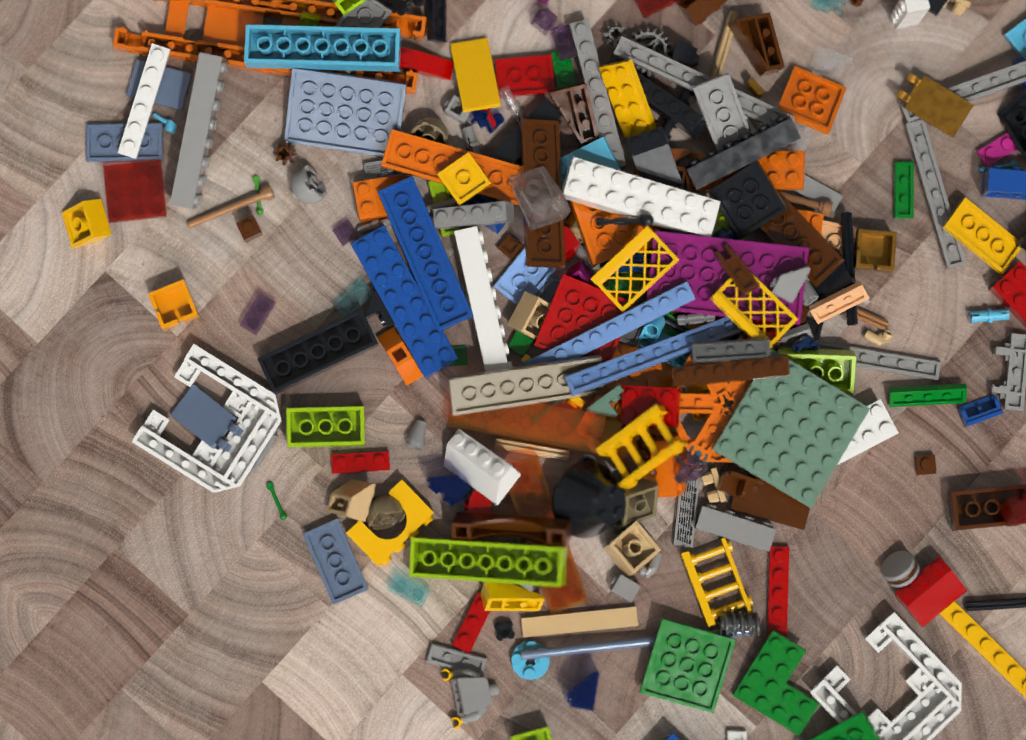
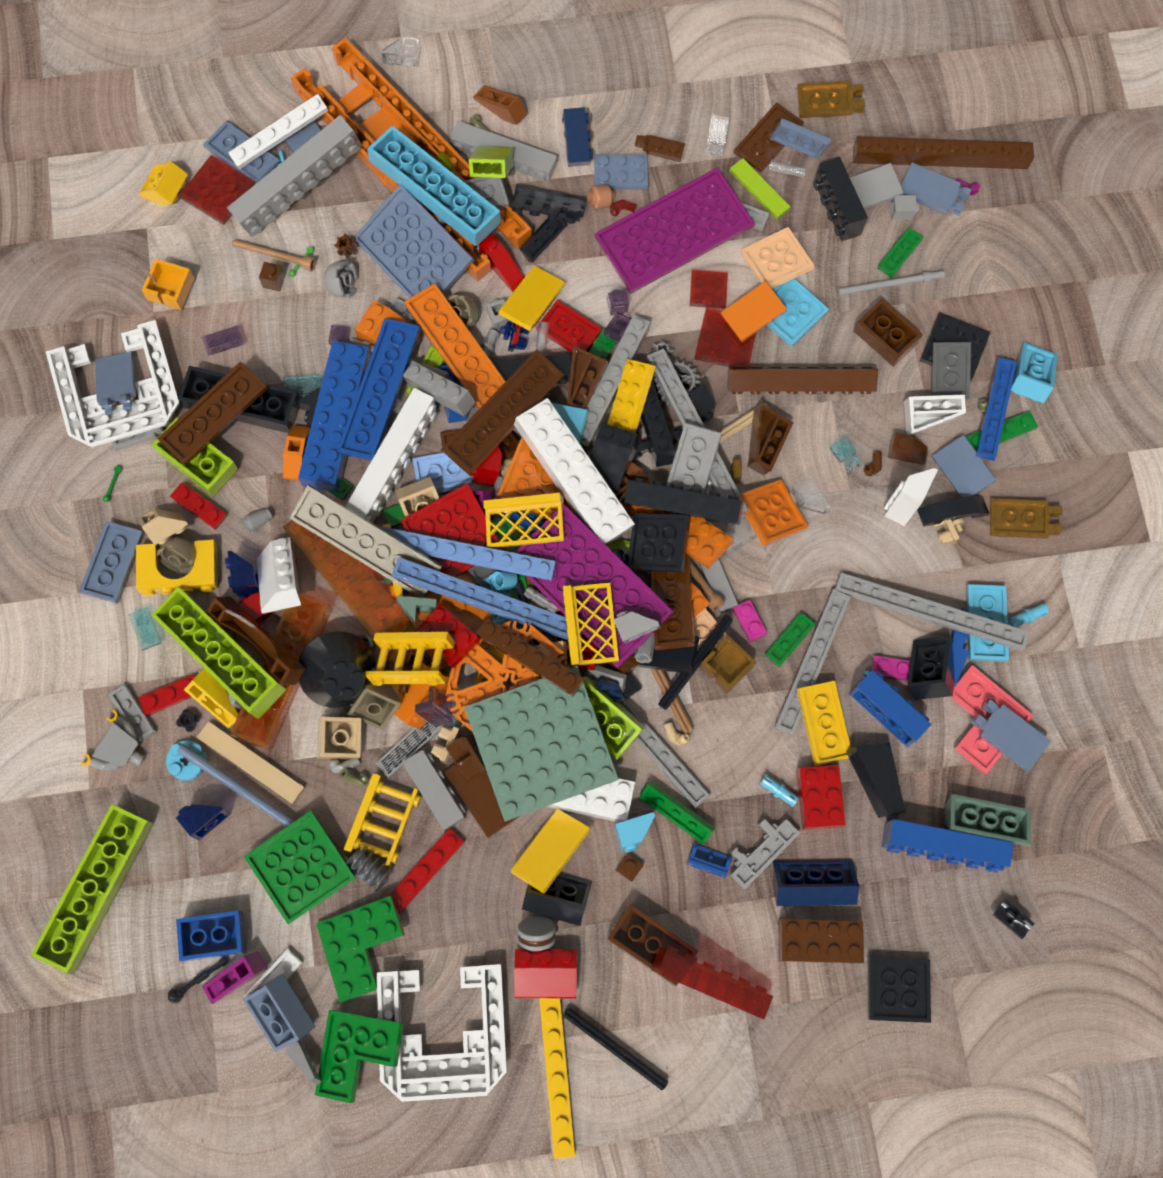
camera: 40 degrees right, 10 degrees down
(314, 381) = (212, 413): none -> reddish brown plate
(464, 179) = (454, 356): yellow plate -> none
(532, 449) = (334, 601): tan axle -> none
(539, 197) = (496, 410): clear slope -> none
(624, 588) = (307, 765): light grey brick -> none
(643, 220) = (560, 486): black piece -> none
(667, 570) = (353, 779): none -> olive arm
(731, 350) = (544, 640): dark grey tile -> none
(737, 271) = (600, 583): reddish brown hinge -> none
(839, 302) = (664, 678): light nougat plate -> none
(860, 500) = (550, 850): none -> yellow tile
(861, 201) = (749, 621): none -> dark pink plate
(890, 529) = (562, 901): none -> black slope
(909, 436) = (632, 832): none -> medium azure slope
(935, 104) = (868, 591): pearl gold tile -> none

